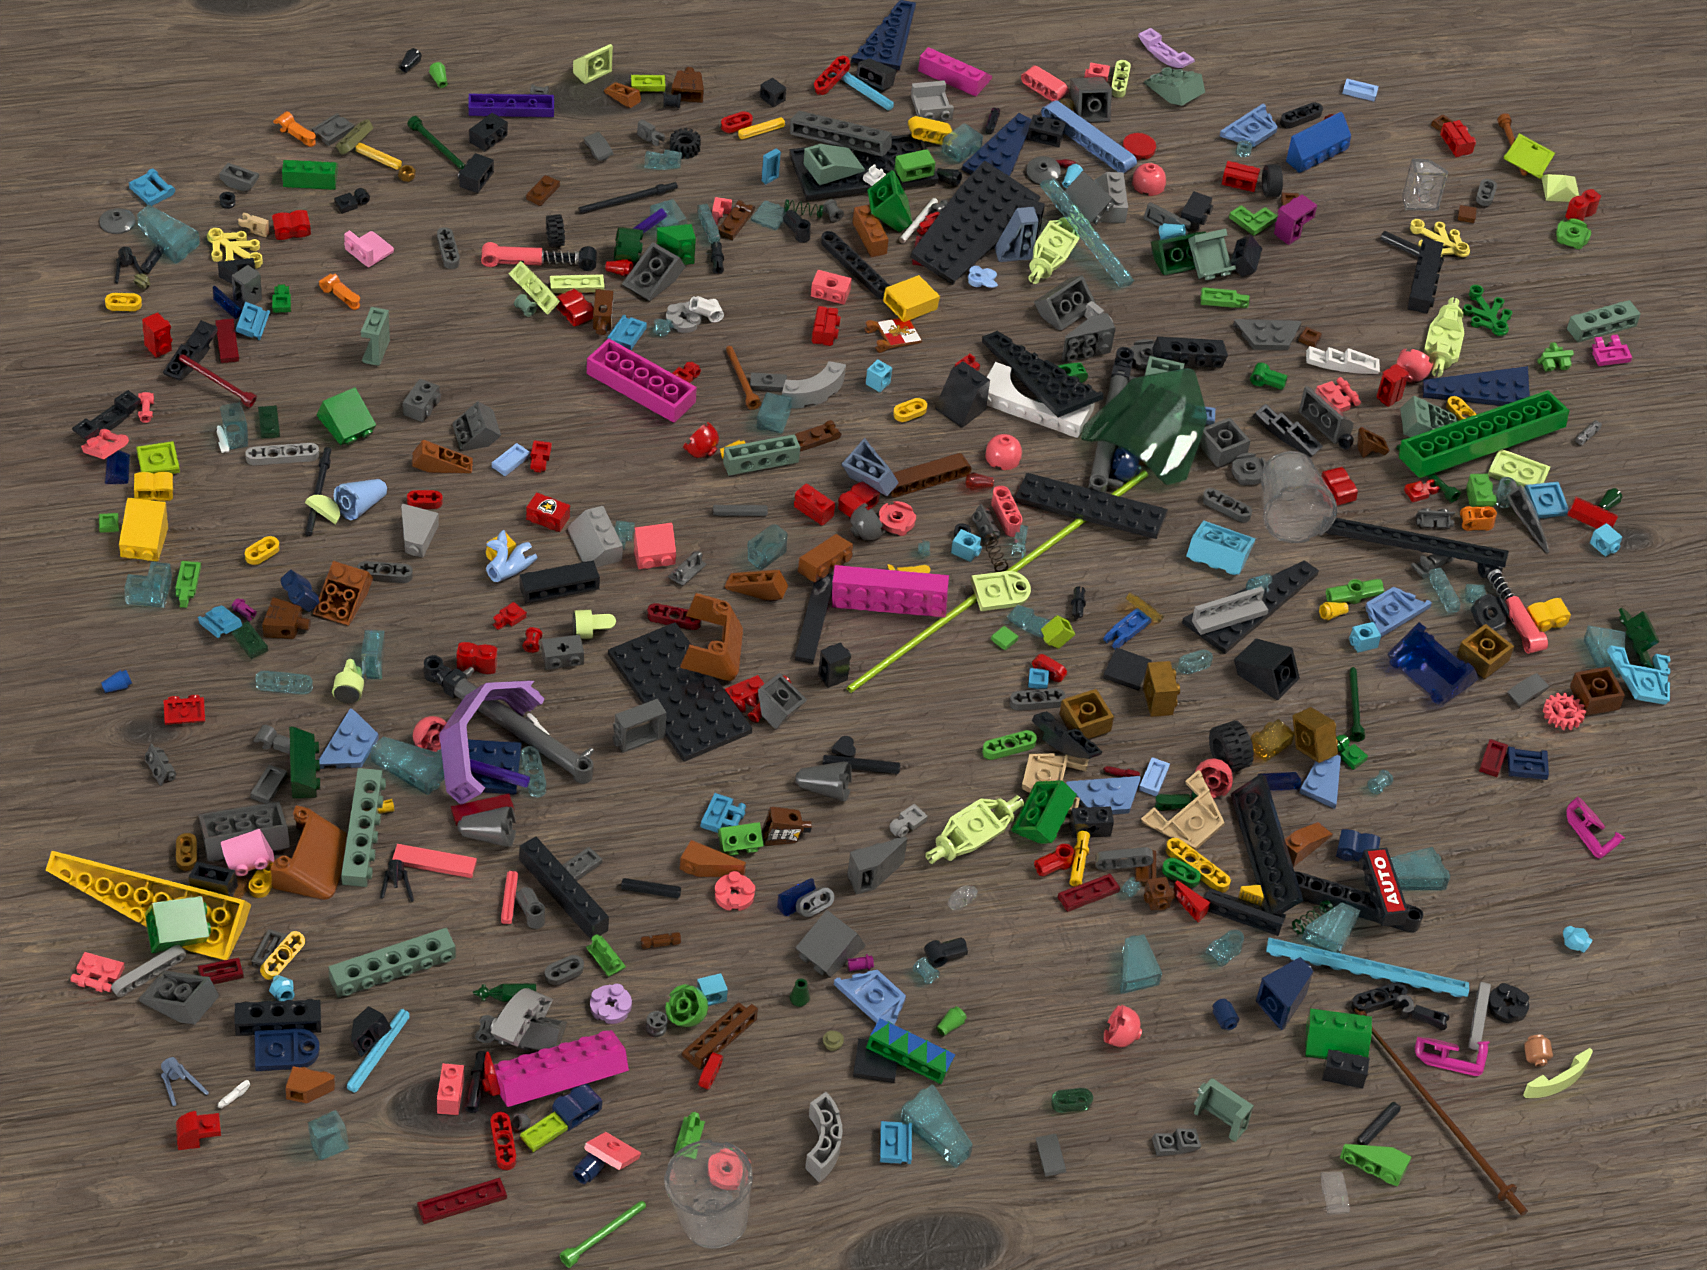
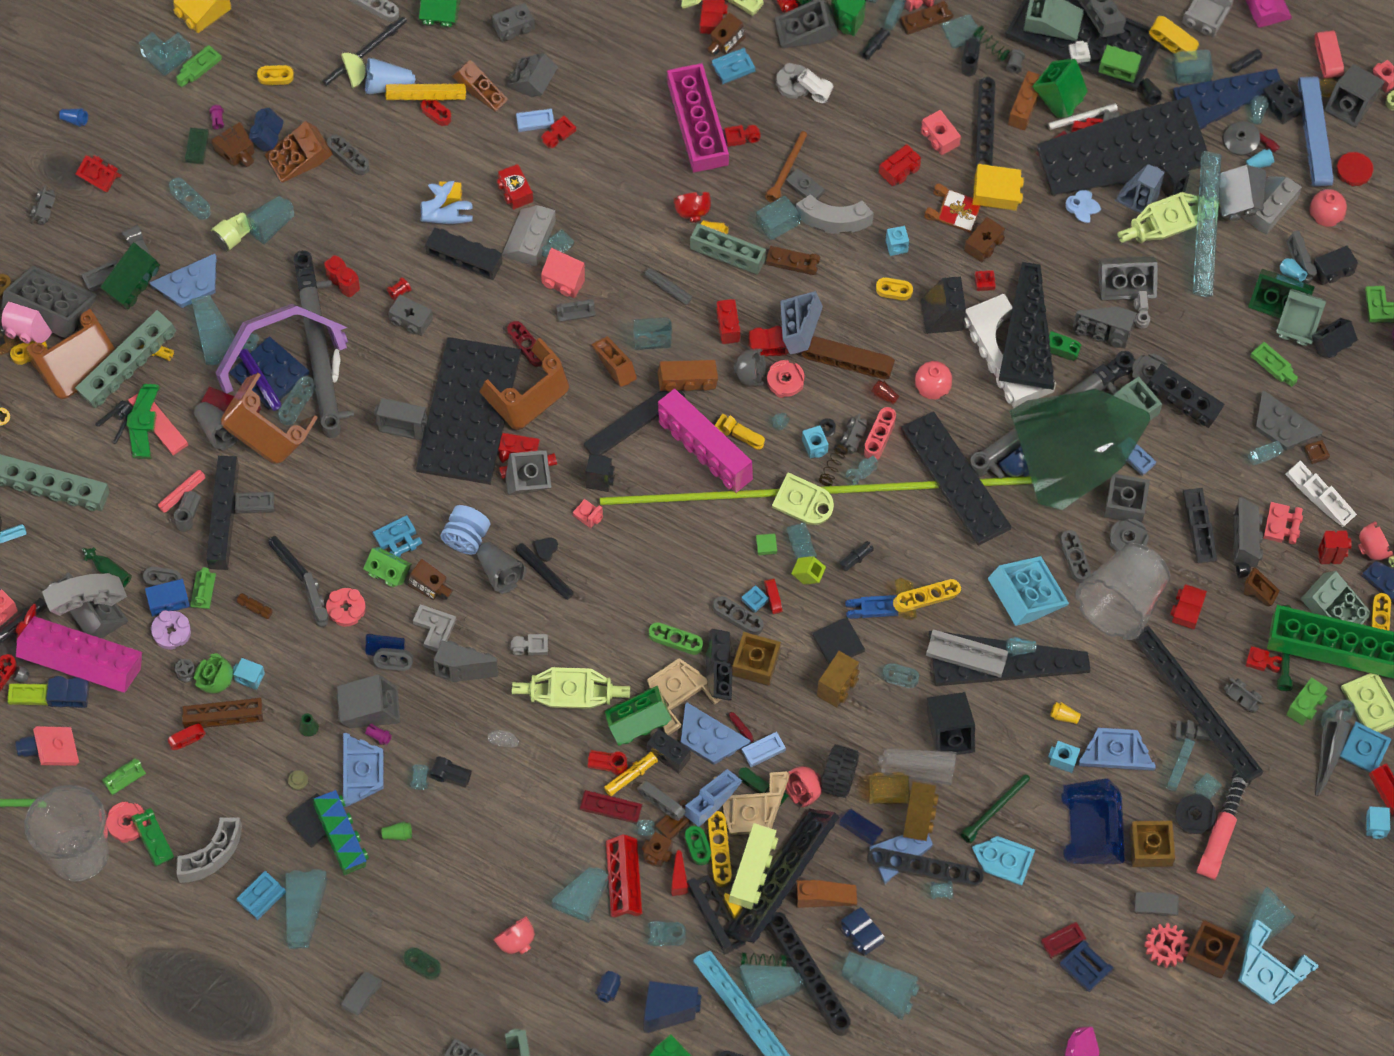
camera: 45 degrees right, 15 degrees up
(220, 621) = (189, 115): dark azure plate -> none
(404, 487) = (425, 92): none -> yellow piece
(418, 529) = (403, 135): light grey slope -> none
(423, 866) = (142, 421): none -> green plate
(427, 733) = (242, 312): coral cylinder -> none
(509, 615) = (406, 256): red plate -> none
(531, 800) = (259, 432): none -> dark orange windscreen
(584, 980) = (167, 597): none -> blue panel
(585, 623) = (447, 304): yellowish green piece -> none
(662, 326) = (769, 82): clear light blue plate -> none
(706, 902) = (316, 601): none -> dark grey hinge
(708, 862) = (346, 568): dark orange slope -> none
(767, 1162) = (153, 837): none -> green plate
(775, 770) = (465, 529): none -> light blue wheel
(821, 853) = (438, 623): none -> light grey plate
(851, 702) = (588, 513): none -> coral bracket
(940, 338) = (984, 240): none -> reddish brown brick
(1034, 143) = (1258, 108): none -> clear light blue cone
(1156, 927) = (628, 875): none -> red fence
(1159, 593) = (928, 598): none -> yellow beam
(1159, 829) = (712, 797): none -> medium blue slope
(1242, 851) = (752, 866): none -> yellowish green wedge
(1263, 375) = (1233, 460): green piece -> none
(1279, 705) = (919, 764): none -> clear slope
(1280, 357) = (1265, 453): none -> clear light blue beam
(1352, 755) = (945, 850): green plate -> none
(1354, 774) = (925, 863): none -> black beam
(1355, 591) = (1111, 715): bright green piece -> none
(1384, 887) = (834, 980): brick -> none
(1397, 732) = (1004, 859): none -> medium azure tile
(1478, 519) = (1279, 718): orange piece -> none
(1549, 614) = (1248, 851): yellow brick -> none
(1641, 633) = (1307, 929): dark green bracket -> none

